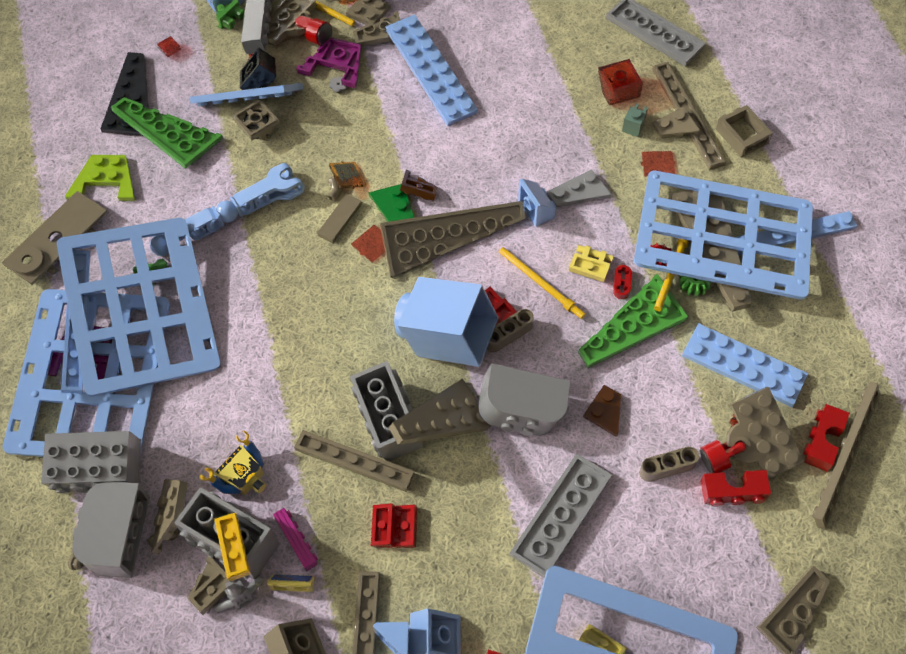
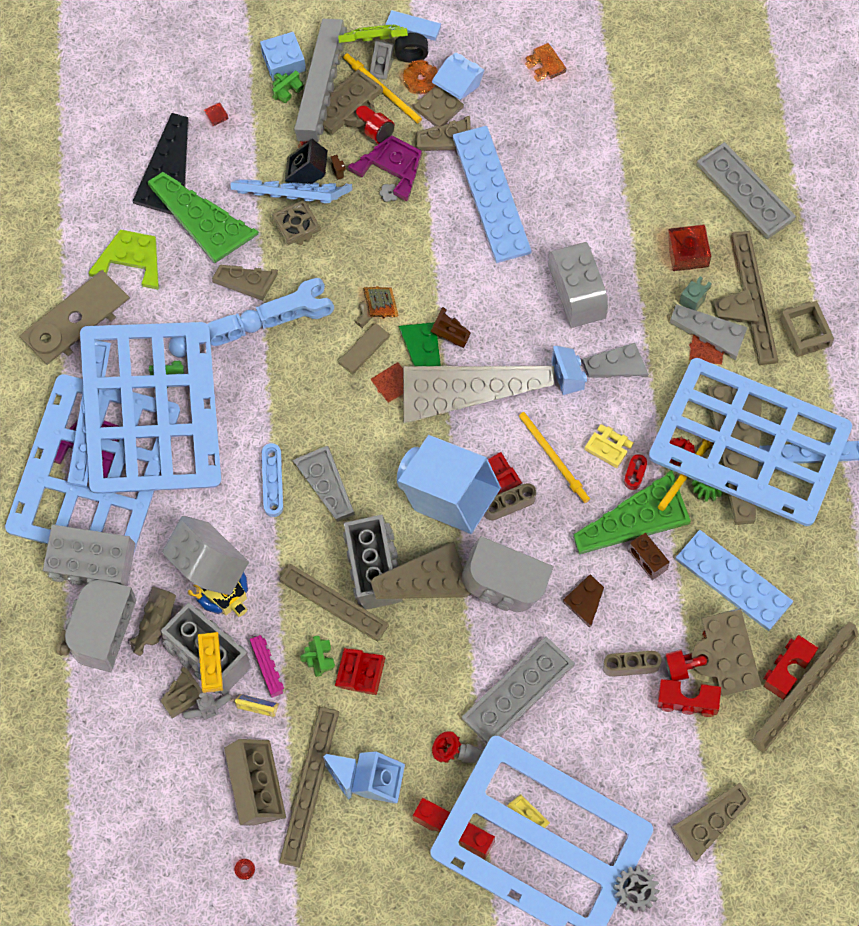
camera: 10 degrees right, 5 degrees up
(212, 436) = (205, 556): none -> light grey brick
(219, 179) = (246, 281): none -> dark tan wing
(271, 353) = (272, 480): none -> light blue plate
(287, 70) = (338, 167): none -> reddish brown plate
(324, 343) = (325, 479): none -> light grey wing
(344, 519) = (315, 658): none -> bright green hips
(494, 584) = (442, 742): none -> red gear
(526, 590) = (469, 753): none -> light grey cone
(528, 126) = (578, 284): none -> light grey brick
(657, 356) = (648, 556): none -> reddish brown brick
(667, 148) = (716, 331): none -> light grey wing

